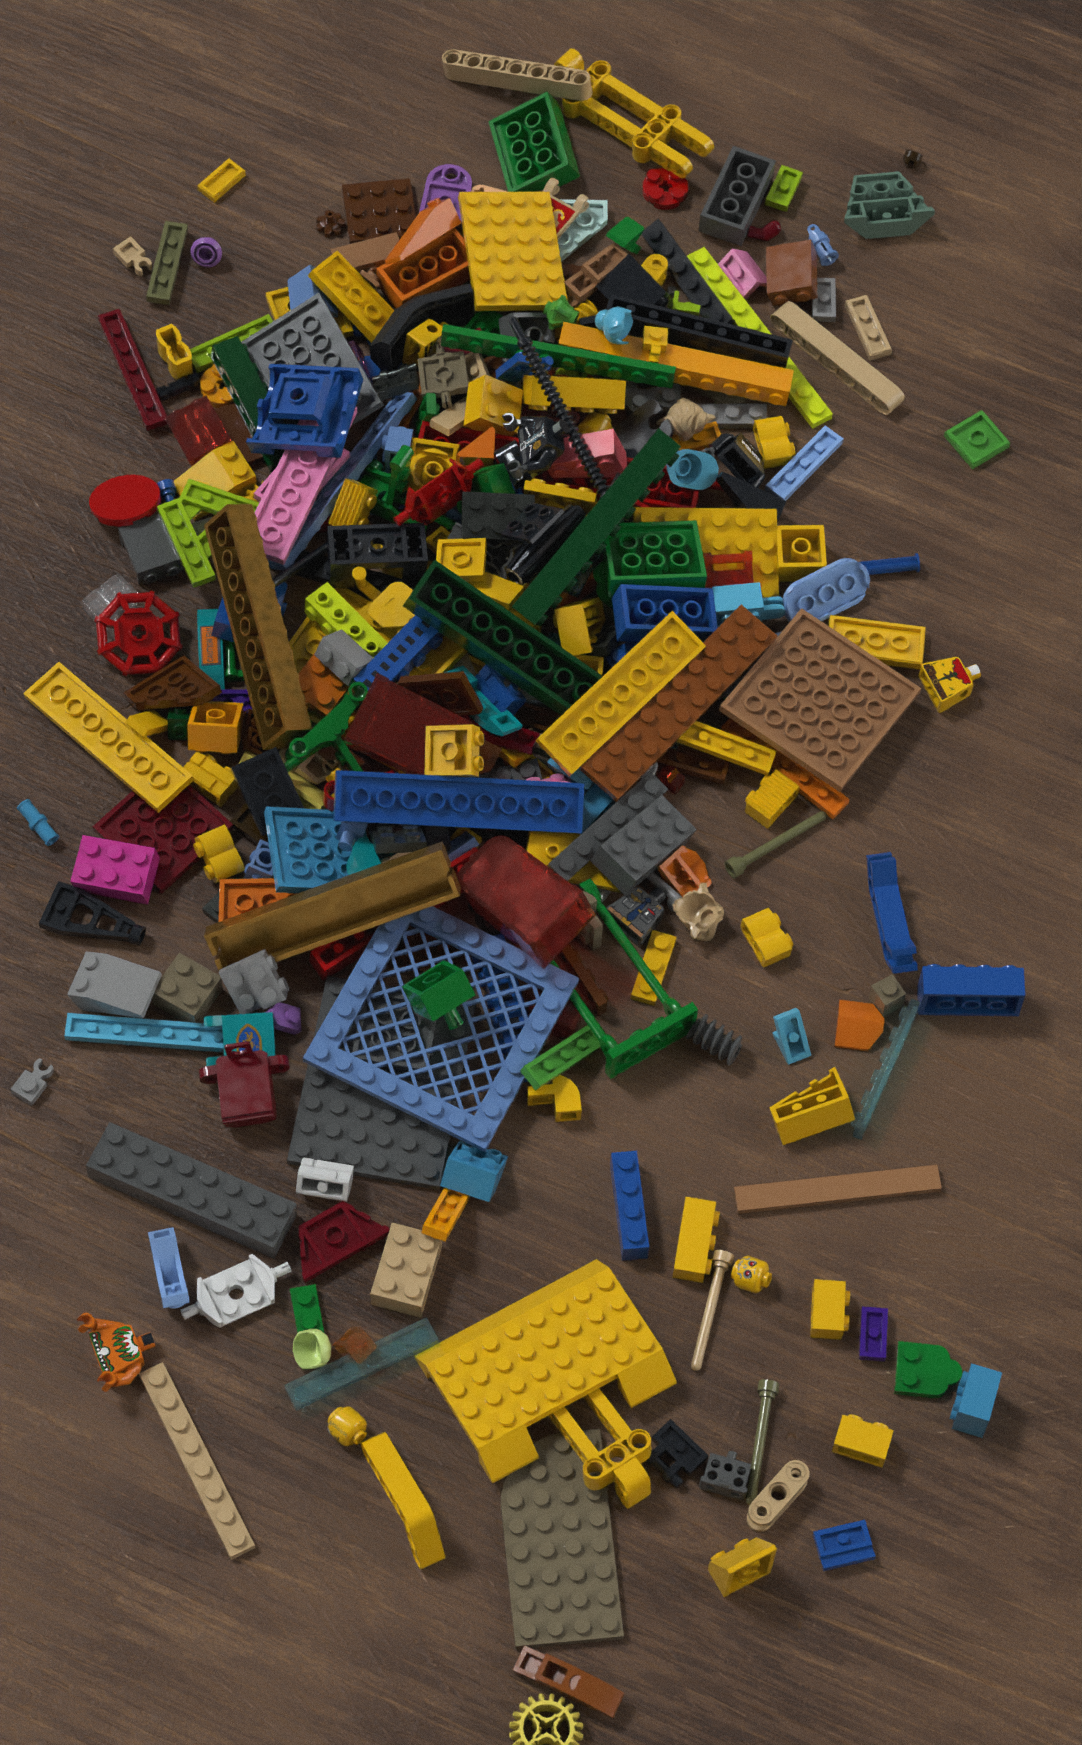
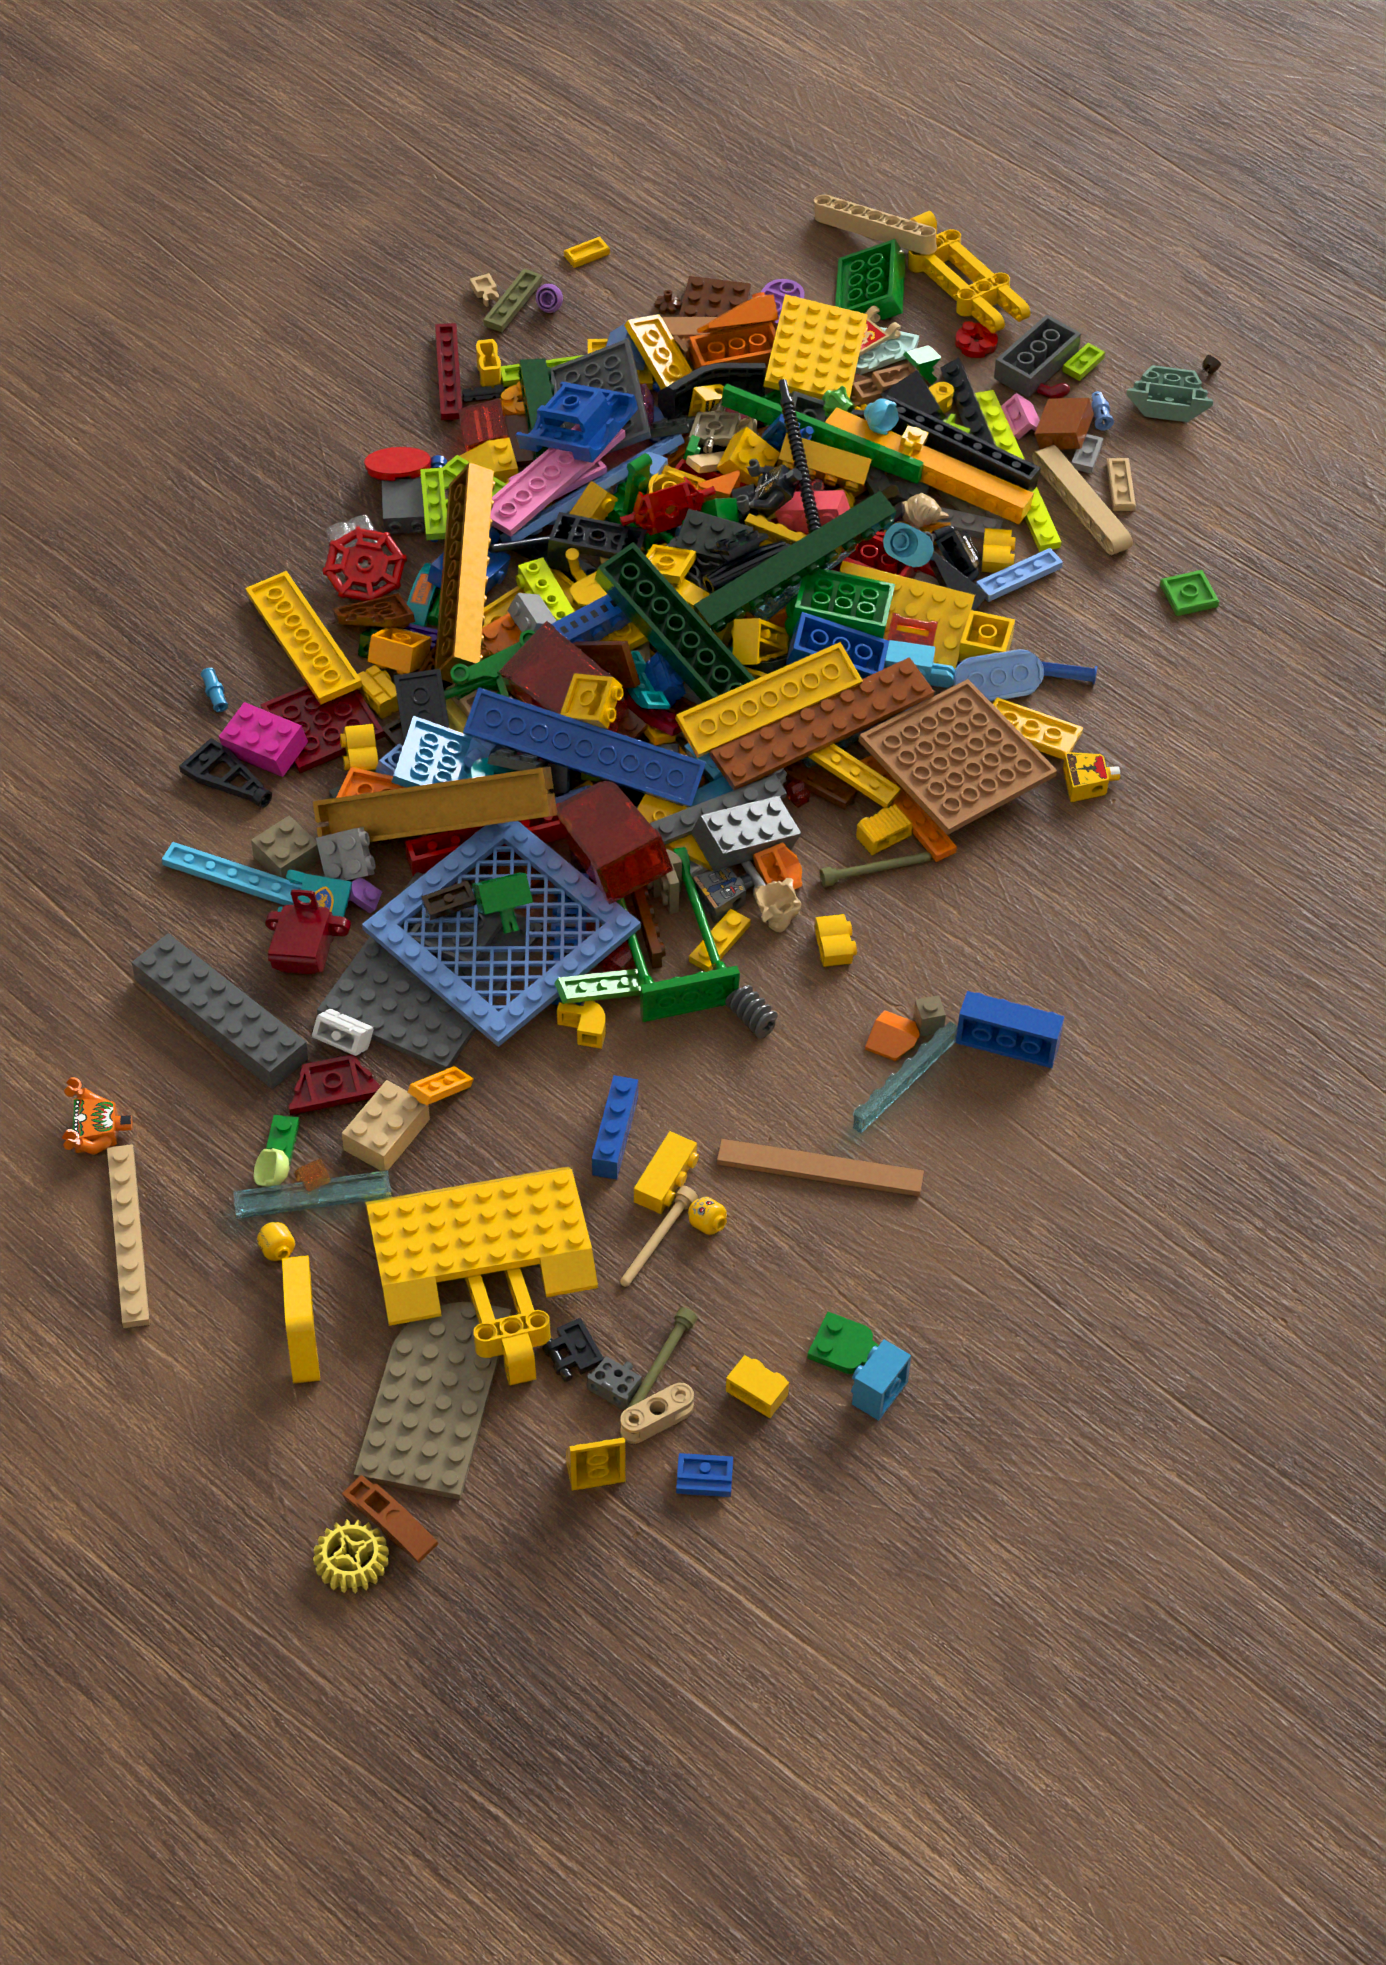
camera: 20 degrees right, 10 degrees down
(31, 1085) = (117, 893): light grey plate -> none
(113, 985) = (219, 827): light grey slope -> none
(147, 723) = (341, 634): yellow tile -> none
(168, 1268) = (170, 1068): light blue arch -> none
(251, 1277) = (203, 1102): white plate -> none
(383, 1009) = (448, 900): none -> dark brown plate
(474, 1171) = (482, 1061): dark azure slope -> none
(791, 1036) = (825, 1025): medium azure slope -> none
(812, 1110) = (820, 1091): yellow wedge -> none
(828, 1309) = (769, 1265): yellow brick -> none
(873, 1333) = (805, 1298): dark purple plate -> none
(890, 913) = (958, 946): blue piece -> none

